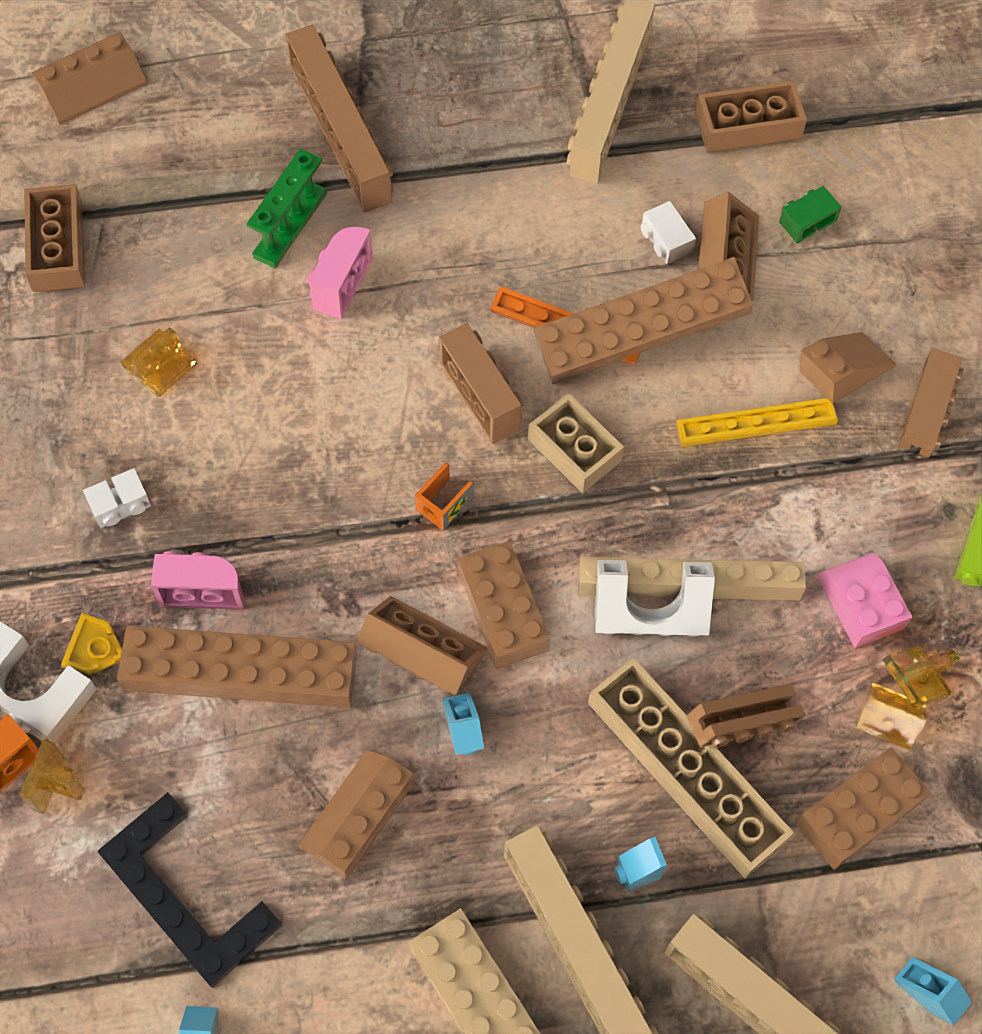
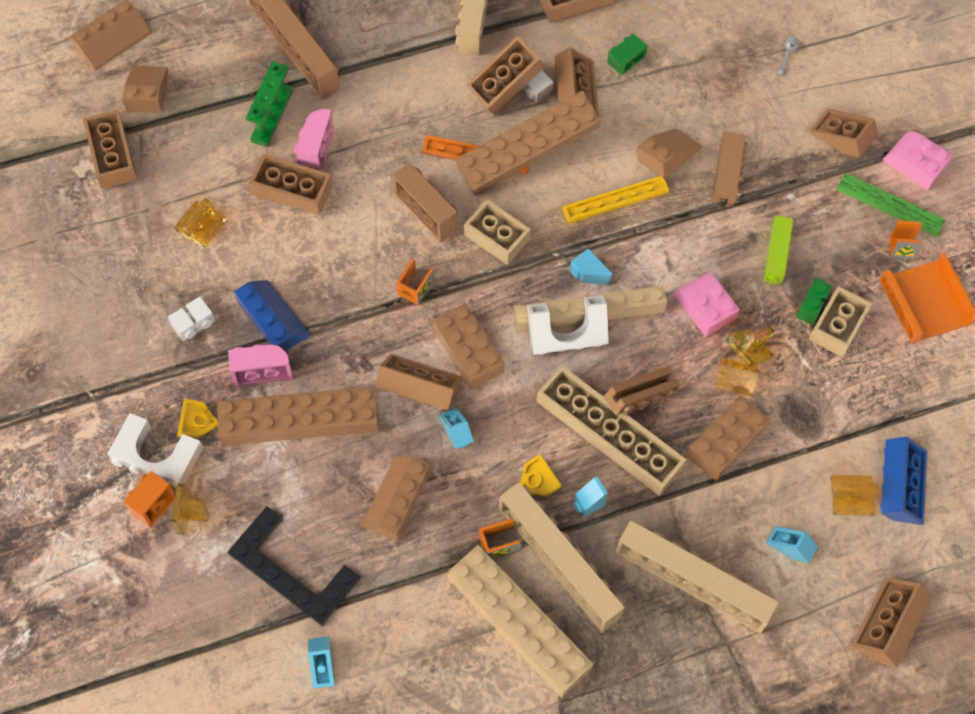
camera: 10 degrees left, 0 degrees up
(121, 161) = (145, 89): none -> medium nougat slope
(231, 510) = (271, 314): none -> blue slope
(295, 326) = (291, 184): none -> medium nougat brick
(493, 887) = (494, 529): none -> orange piece
(570, 820) = (539, 477): none -> yellow plate
(628, 218) = (506, 75): none -> medium nougat brick
(701, 519) = (590, 269): none -> medium azure slope

